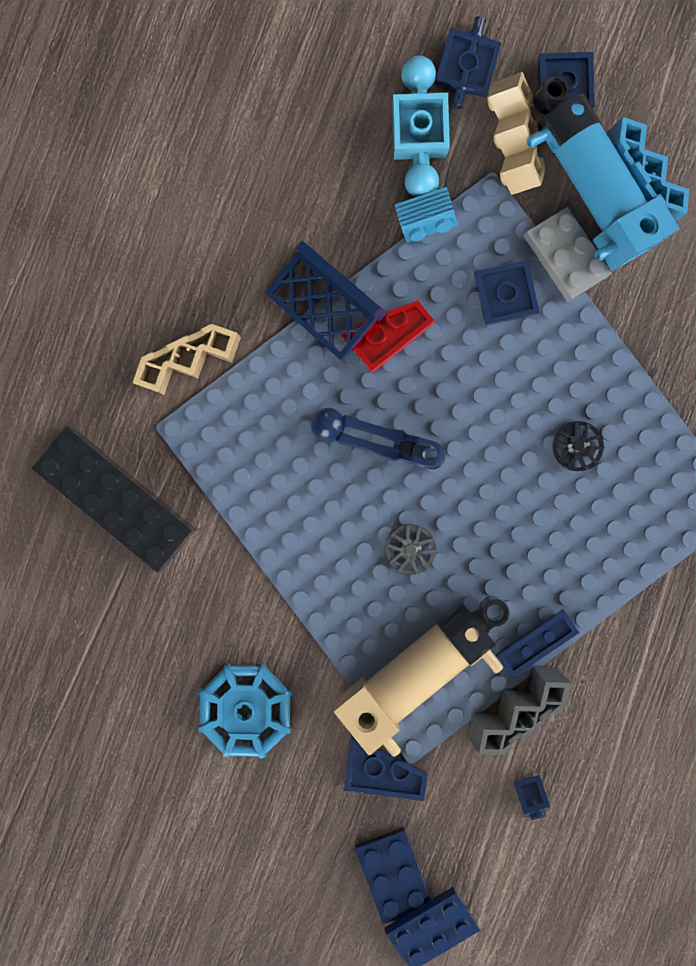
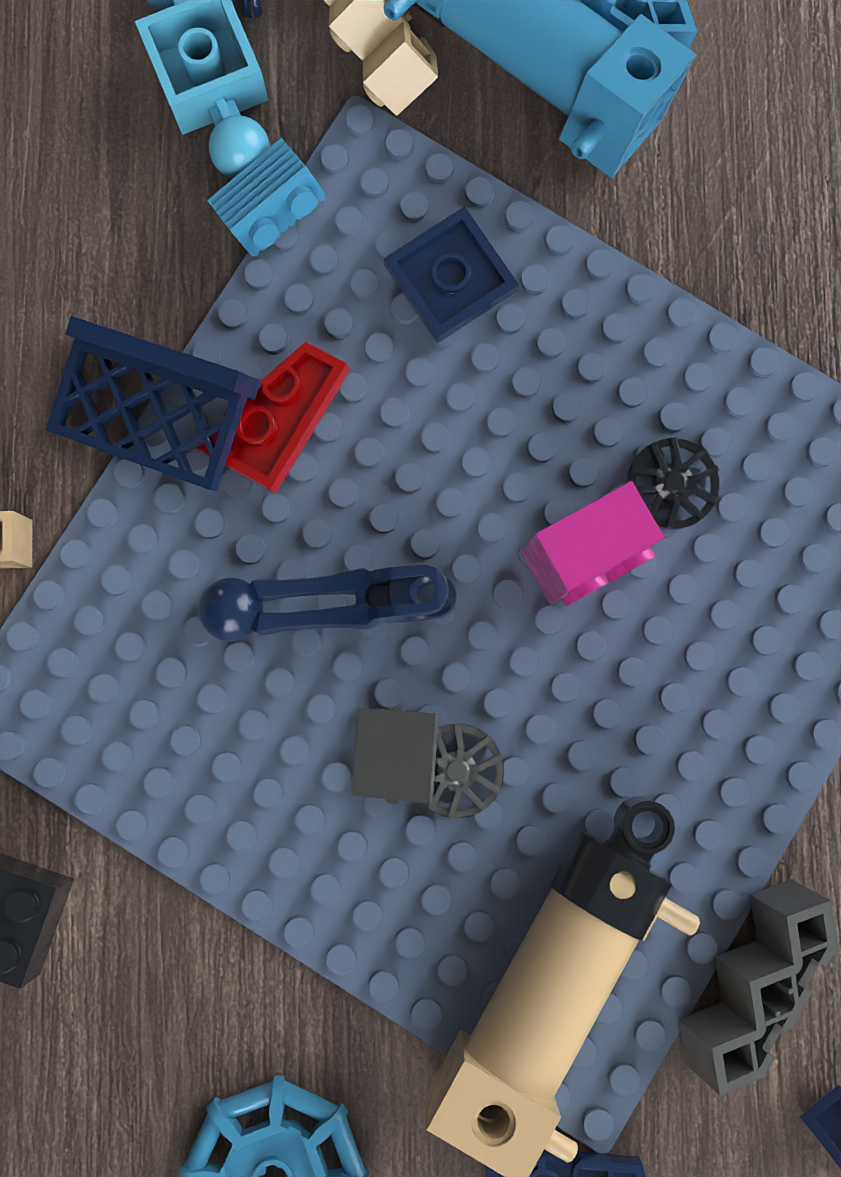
camera: 15 degrees left, 5 degrees down
(383, 529) = (395, 755): none -> dark grey piece
(525, 463) = (593, 543): none -> dark pink brick
(537, 643) = (741, 851): dark blue plate -> none
(567, 254) = (527, 177): light grey plate -> none

